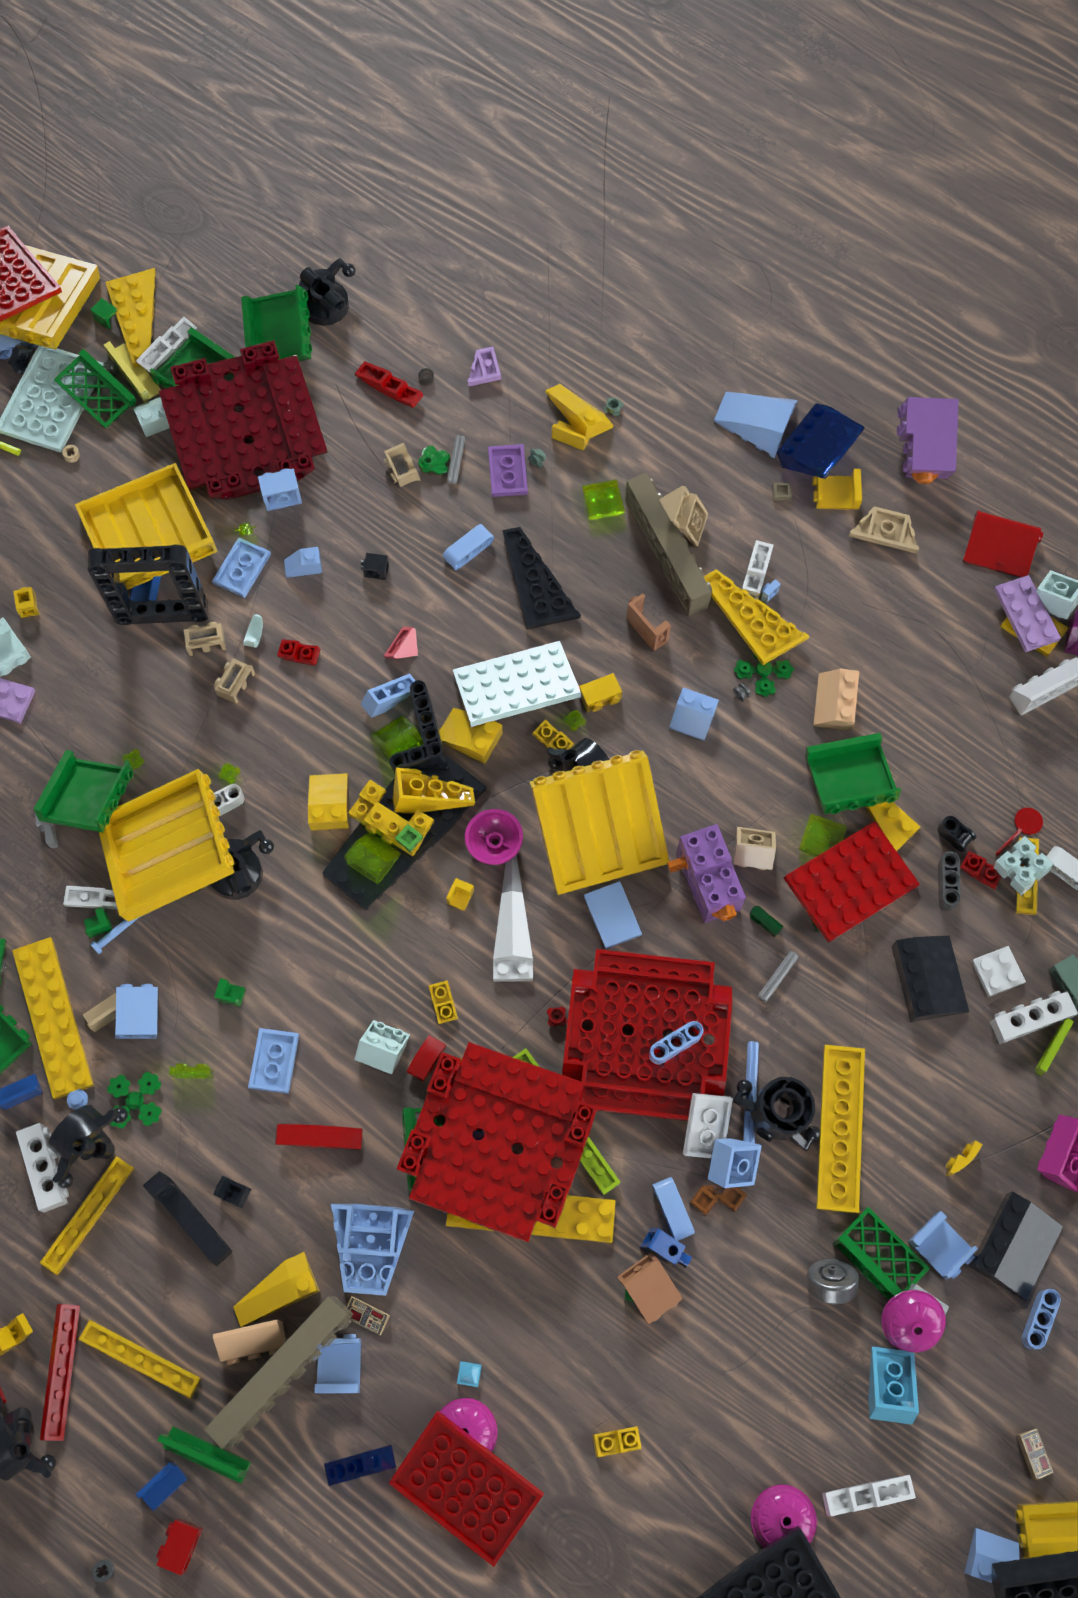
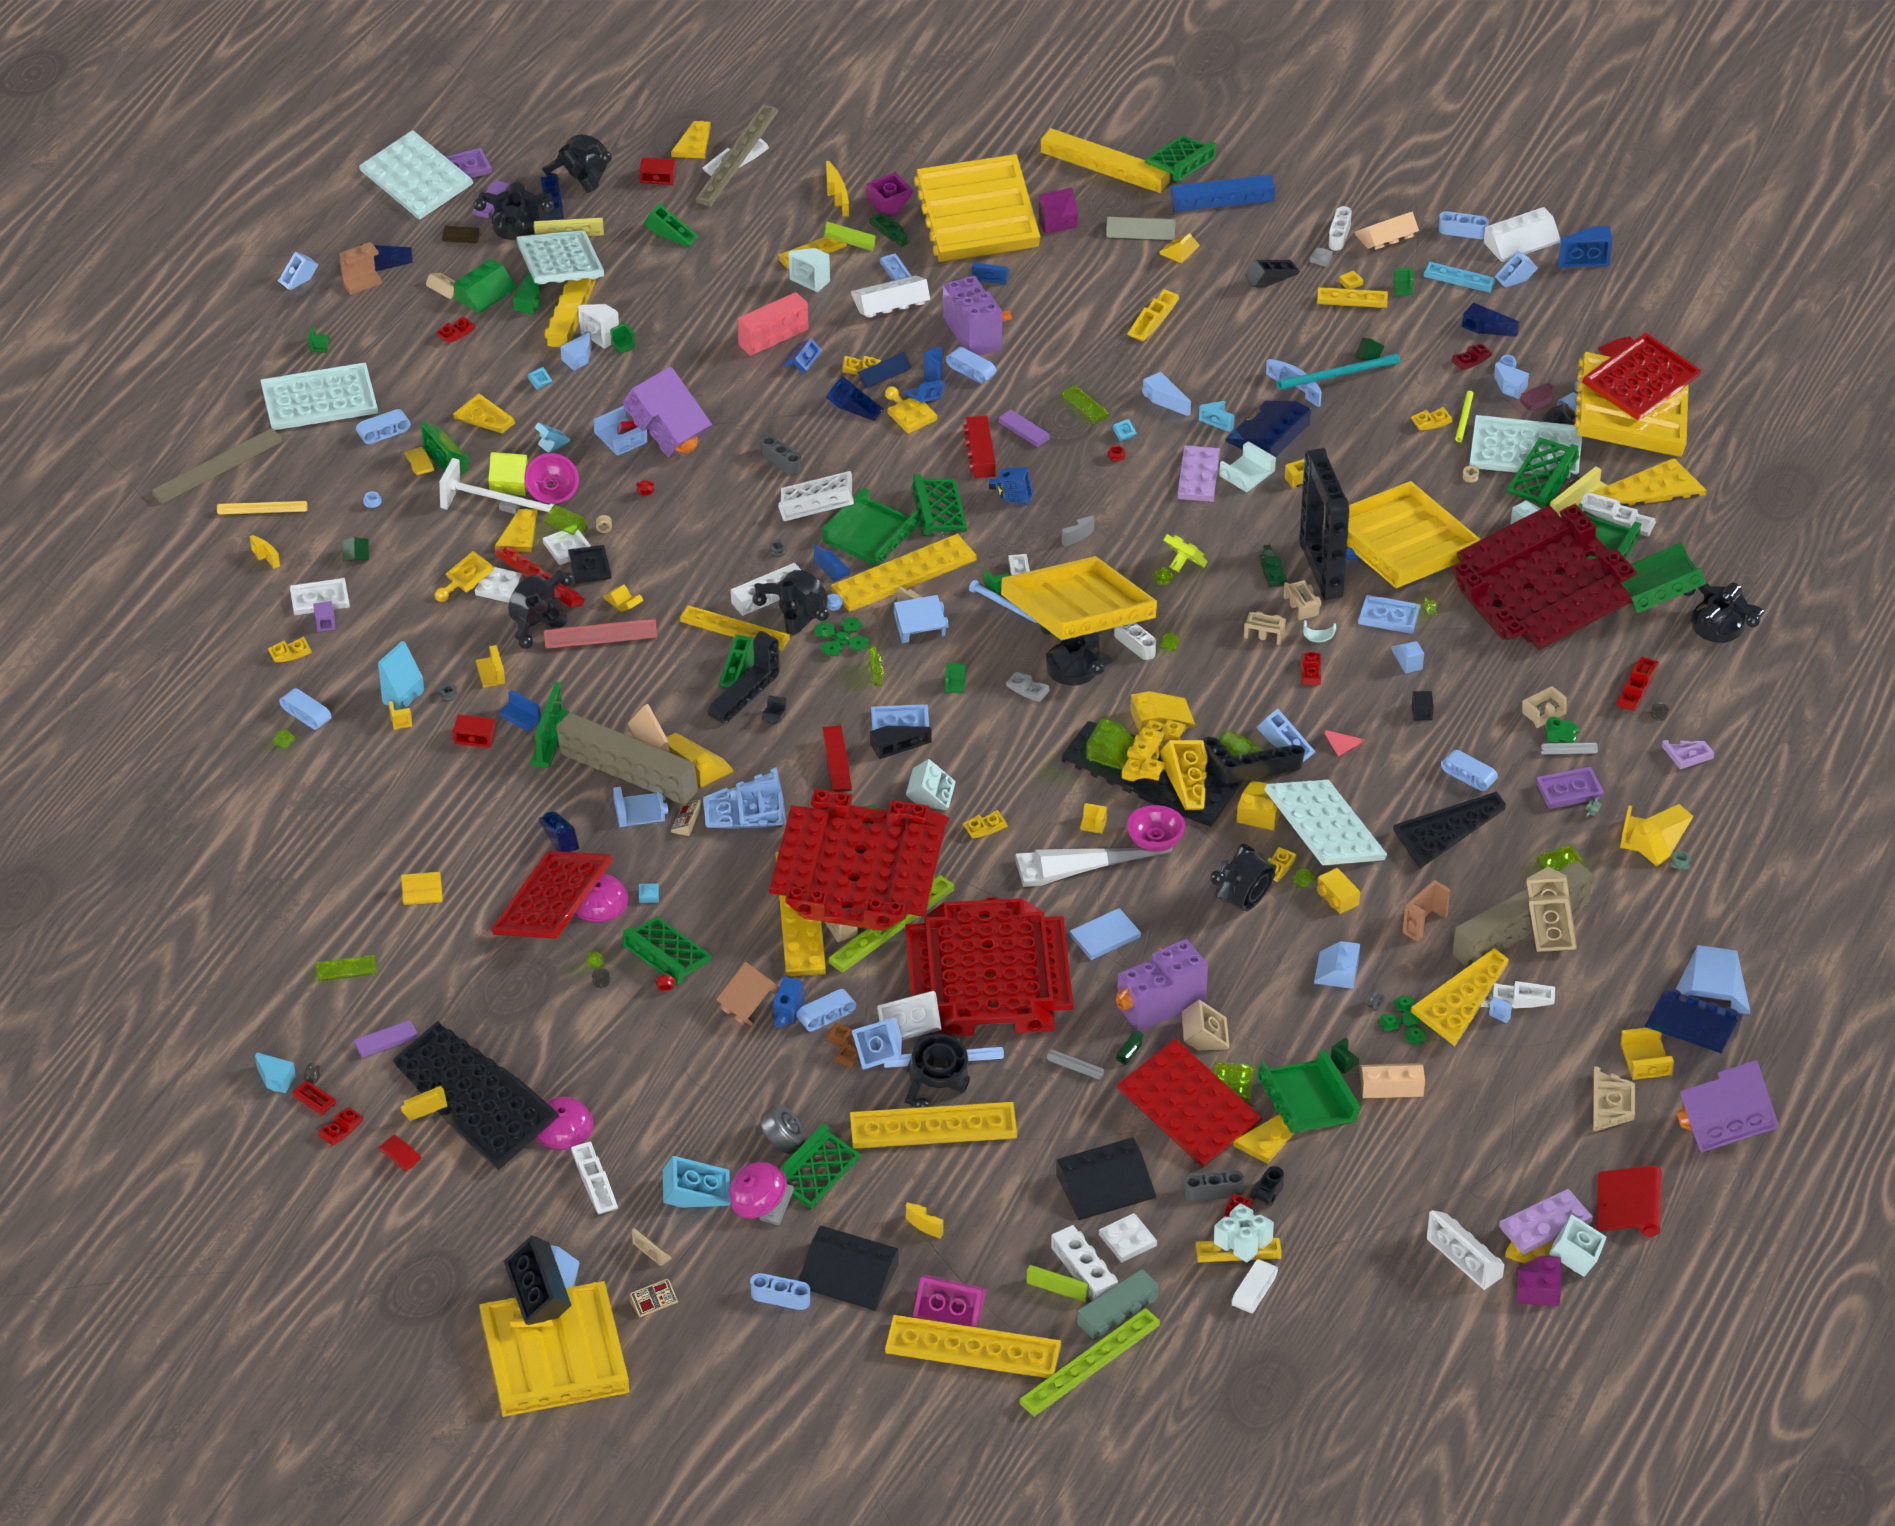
camera: 80 degrees right, 25 degrees down
(79, 1513) = (491, 669): none -> yellow panel
(82, 793) = (1116, 540): green panel -> none
(102, 312) = (1636, 460): green panel -> none
(114, 731) = (1185, 552): none -> neon yellow plate
(140, 1359) = (620, 683): yellow tile -> none
(149, 656) = (1272, 567): none -> dark green hinge
(150, 1219) = (738, 661): none -> green slope
(255, 924) = (1024, 686): none -> light grey slope
(280, 489) = (1478, 616): light blue slope -> none
(304, 1073) = (897, 739): none -> black slope
(408, 838) = (1133, 758): bright green plate -> none
(560, 1450) = (595, 959): none -> clear neon green plate
(568, 1380) = (657, 956): none -> green fence
(590, 1449) = (600, 978): none -> clear smoke bush
(600, 821) = (1187, 881): yellow panel -> none
(606, 1375) = (665, 982): none -> red plate
(616, 1441) = (609, 998): yellow slope -> none
(681, 1034) = (981, 972): light blue beam -> none
(782, 491) = (1628, 1010): dark tan tile -> none
(807, 734) = (1342, 1057): none -> dark green panel
(942, 1247) = (839, 1210): light blue panel -> none
(966, 1445) = (650, 1248): none -> tan slope
(1026, 821) = (1302, 1252): red piece -> none

